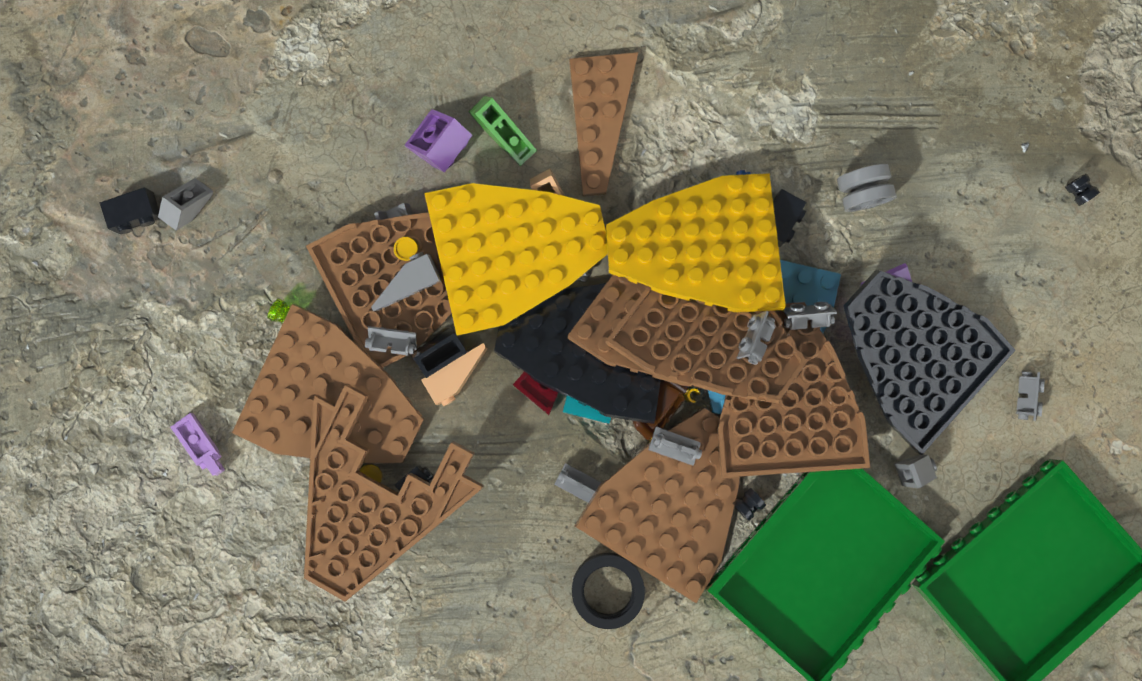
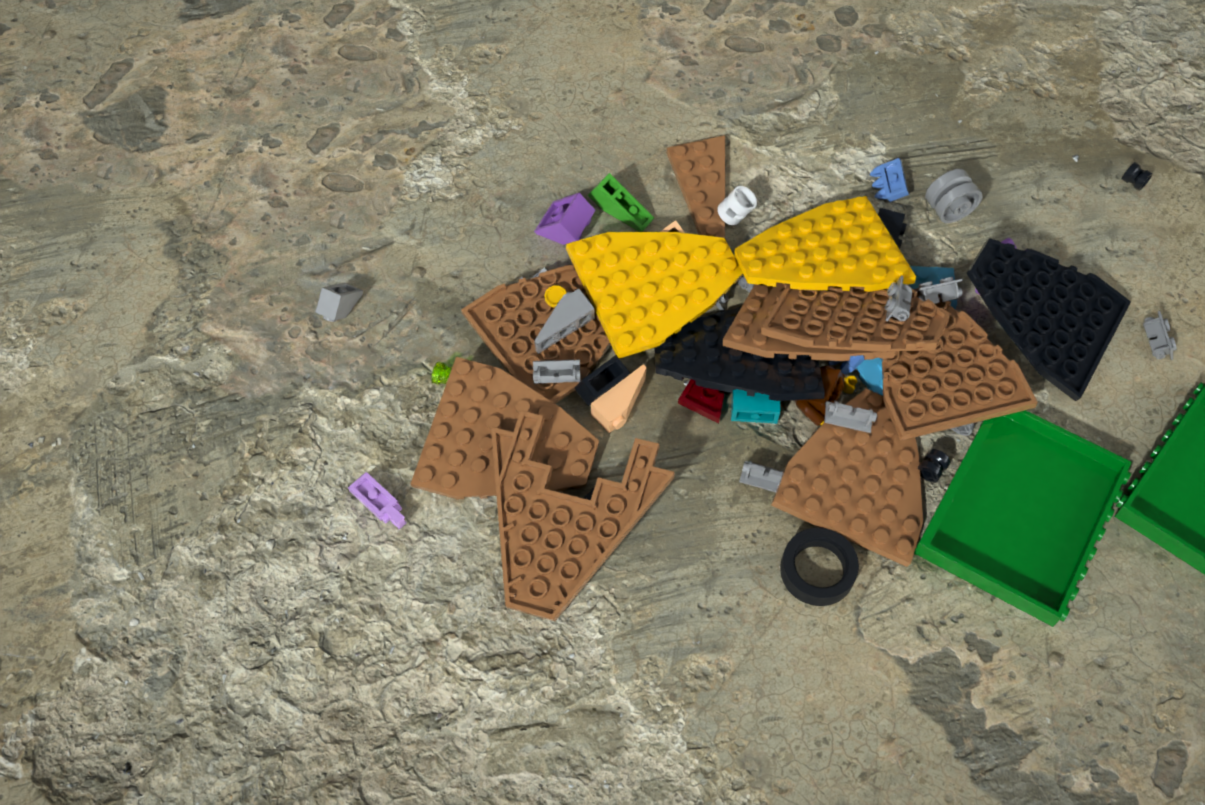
camera: 10 degrees left, 25 degrees down
(130, 211) = (288, 313): black brick -> none
(626, 158) = (737, 205): none -> white wheel
(807, 147) = (891, 181): none -> medium blue plate
(916, 471) = (1079, 410): light grey slope -> none

